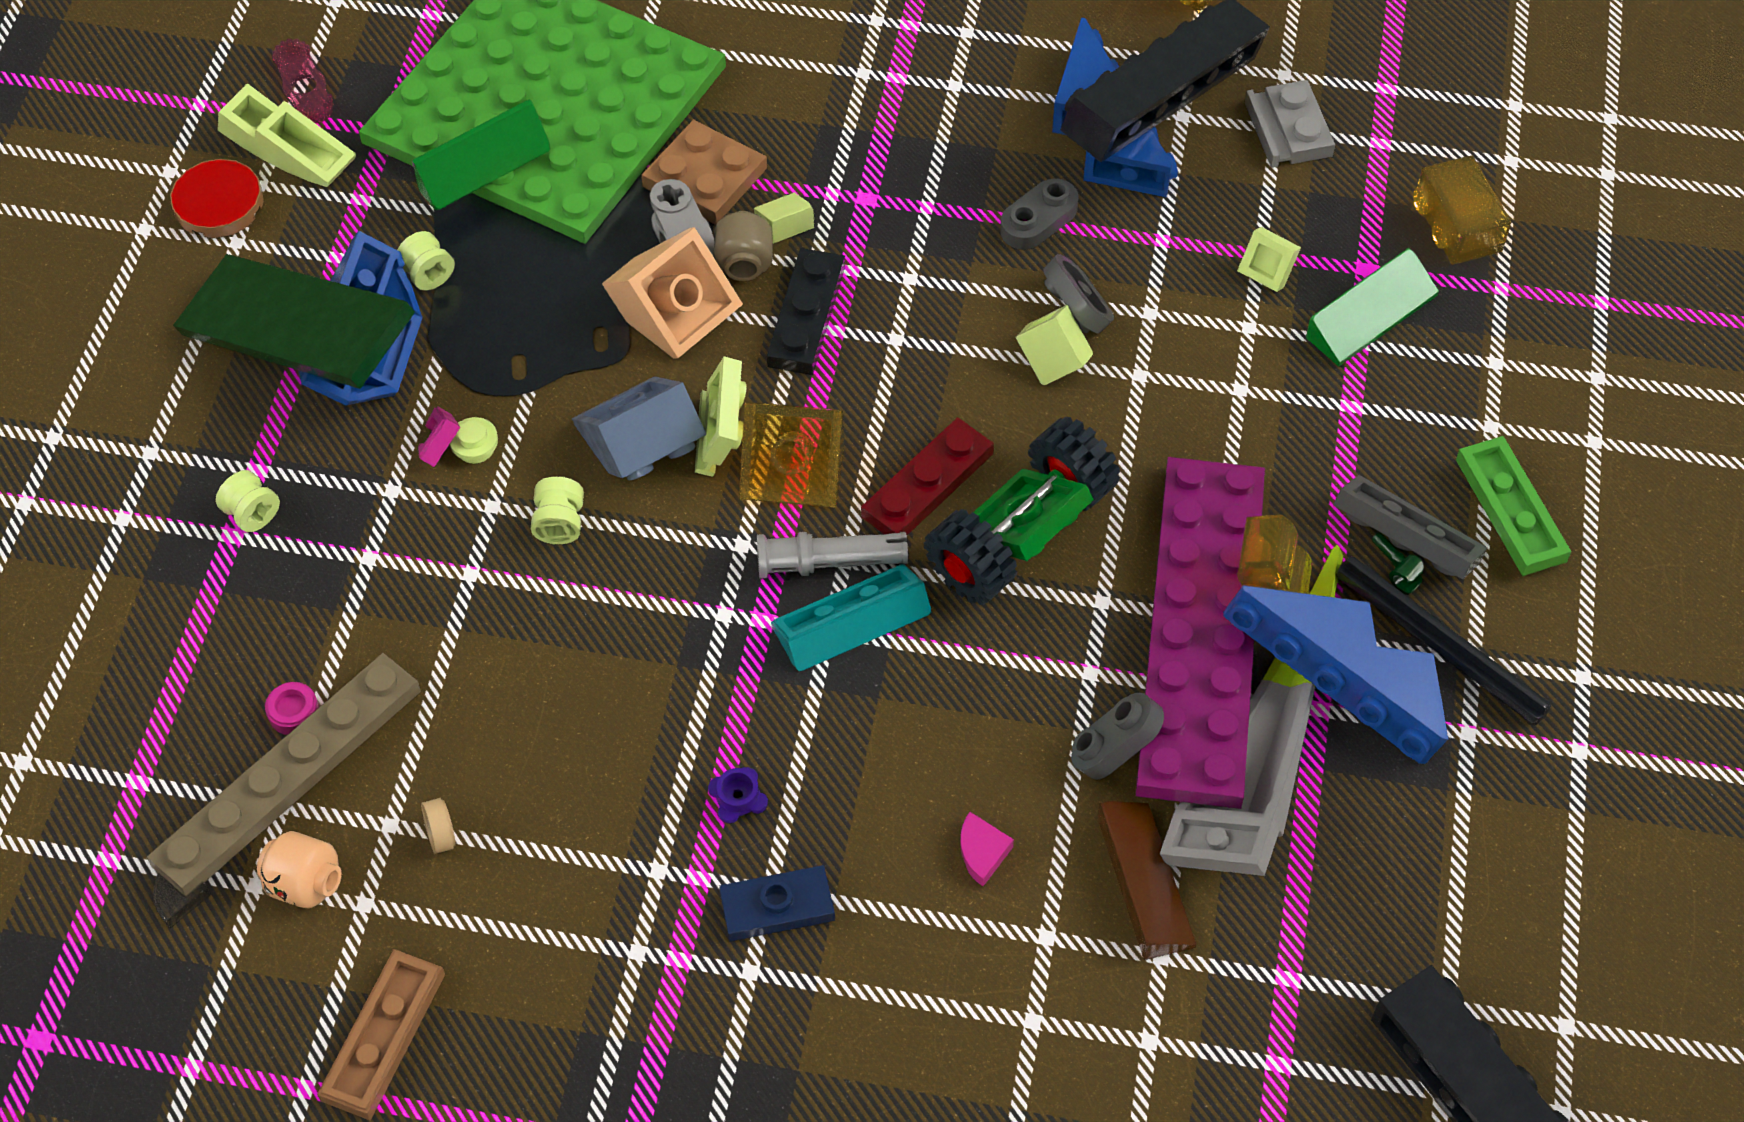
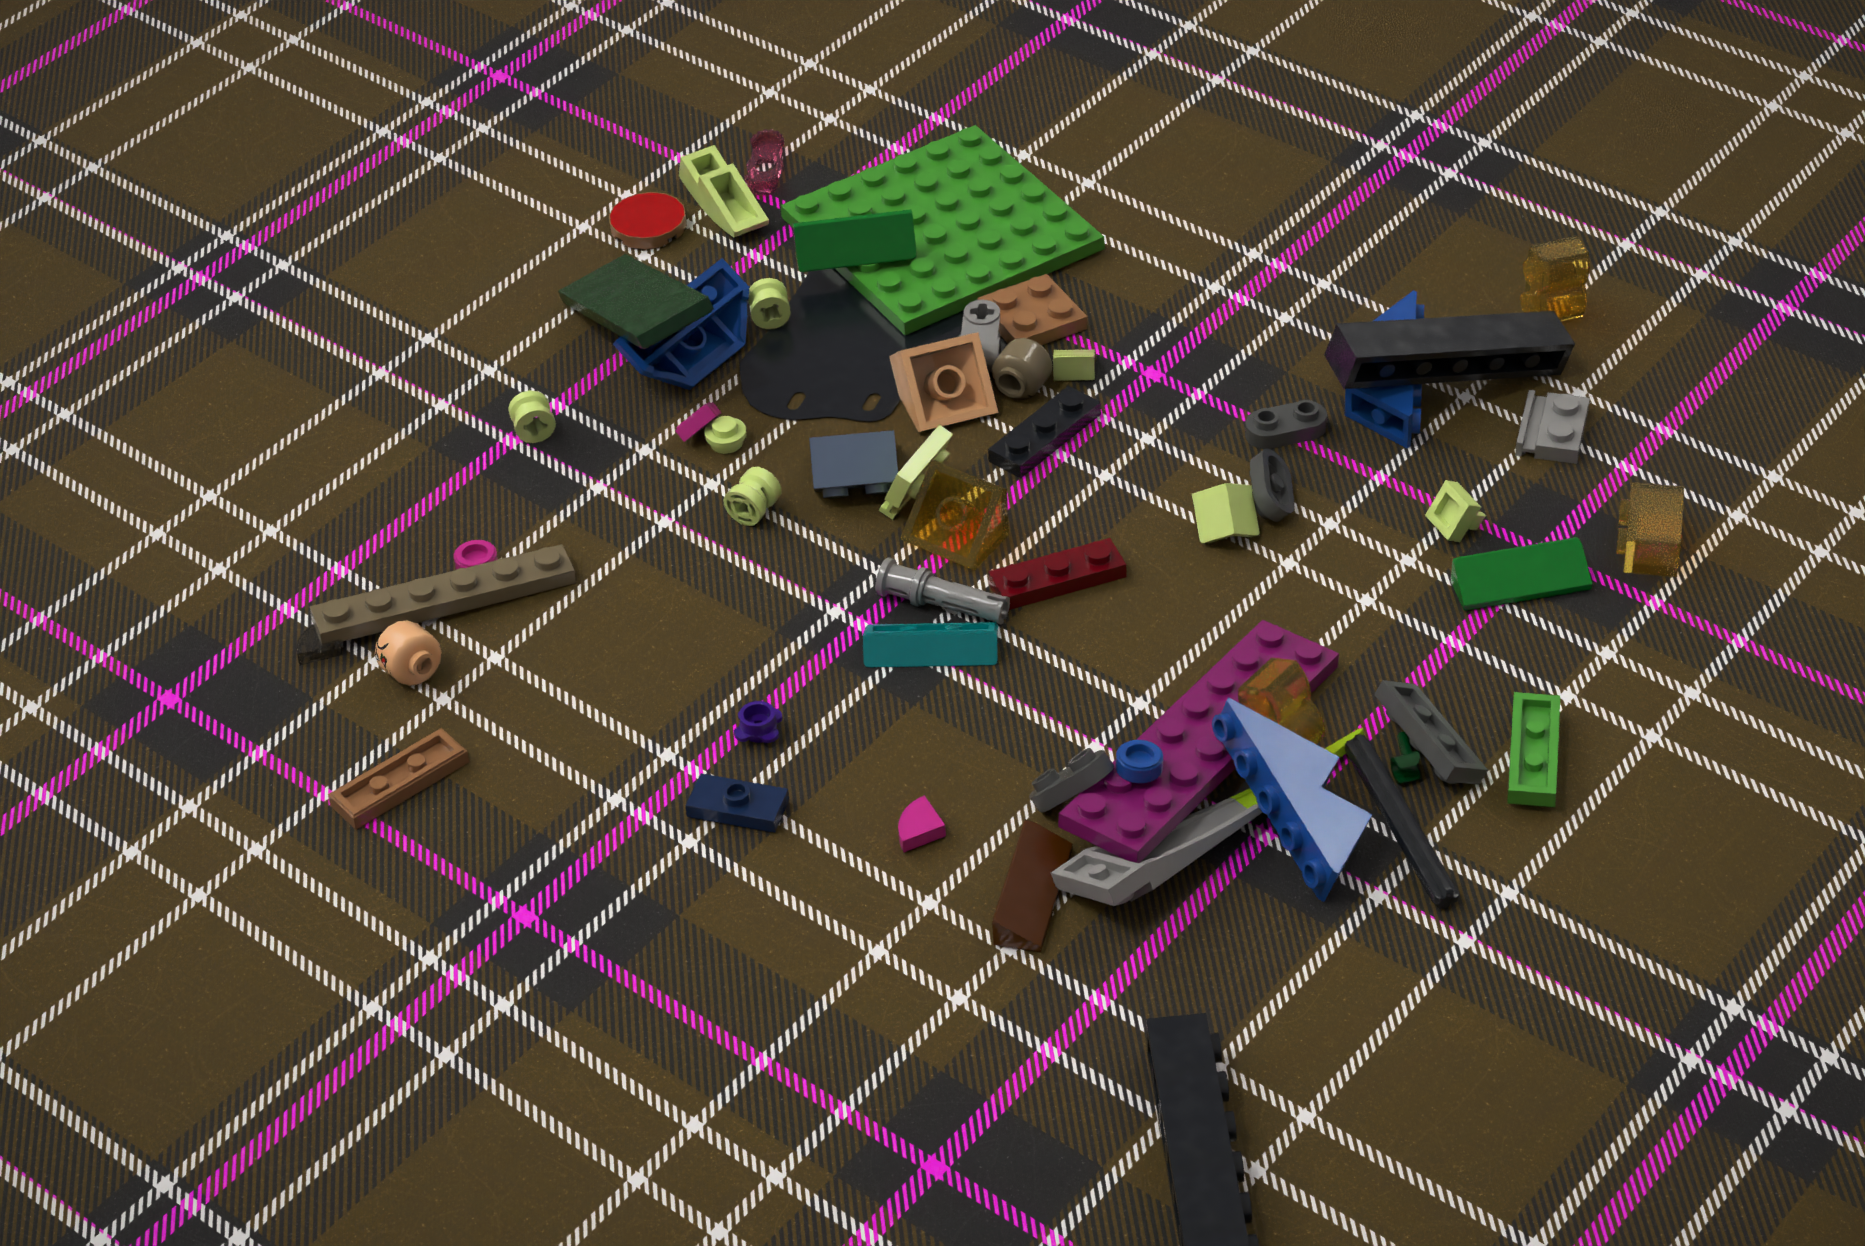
camera: 30 degrees right, 15 degrees down
(438, 825) = (524, 662): tan tile -> none
(1024, 512) = (1169, 597): plate -> none
(1182, 690) = (1139, 761): none -> blue tile

